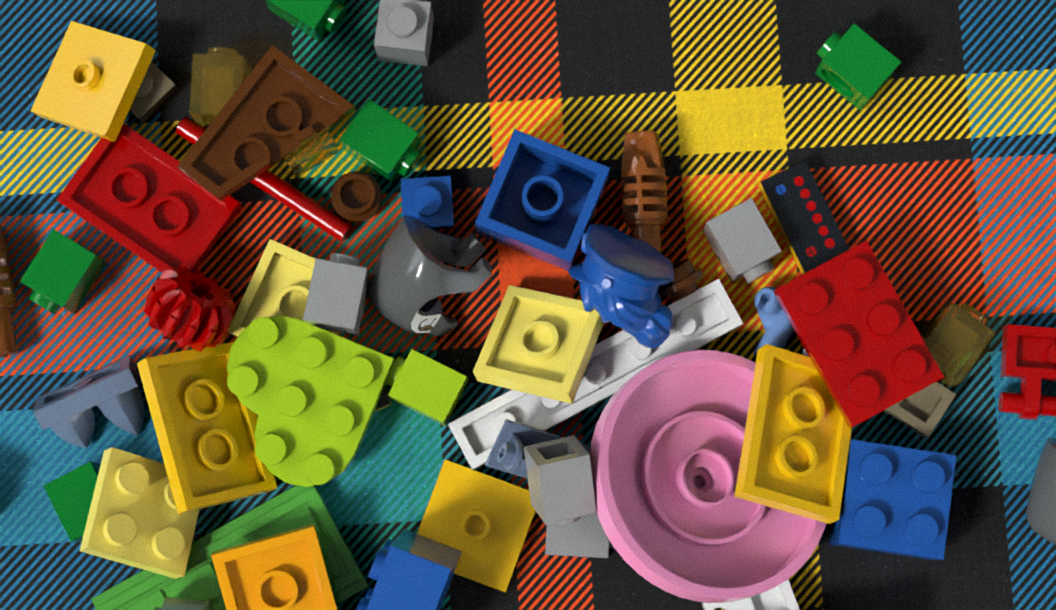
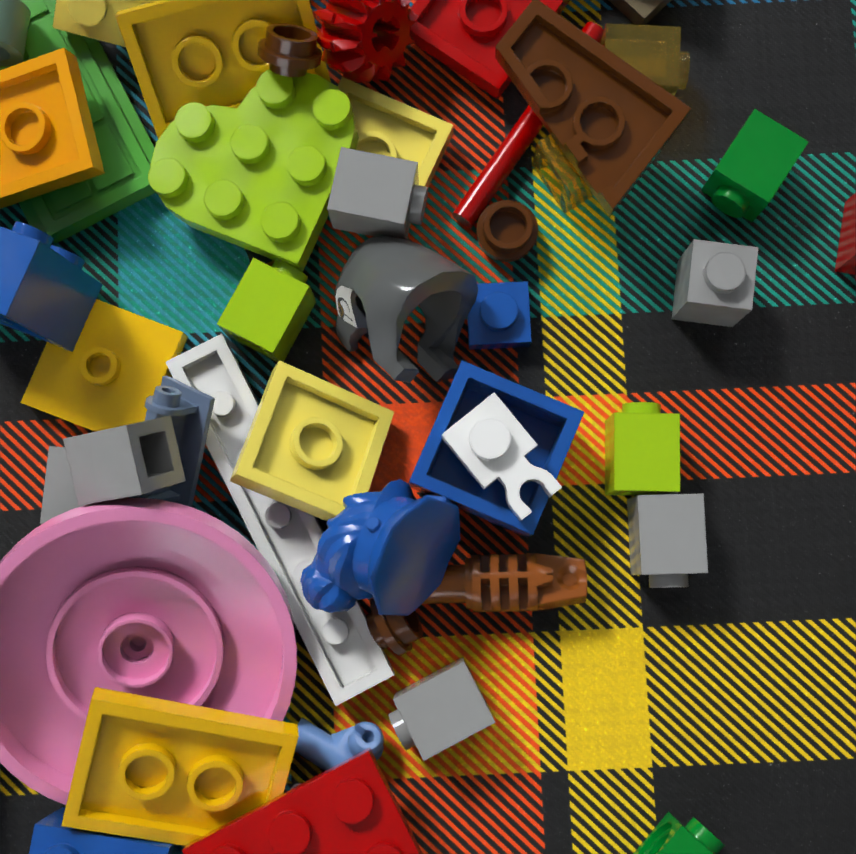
camera: 95 degrees right, 0 degrees up
(214, 366) = (290, 49): none -> reddish brown plate
(382, 142) = (572, 256): green brick -> none
(539, 89) = (642, 451): none -> lime brick
(545, 195) = (494, 448): none -> white plate
(607, 70) = (667, 538): none -> light grey brick
(803, 217) = (475, 791): black tile -> none

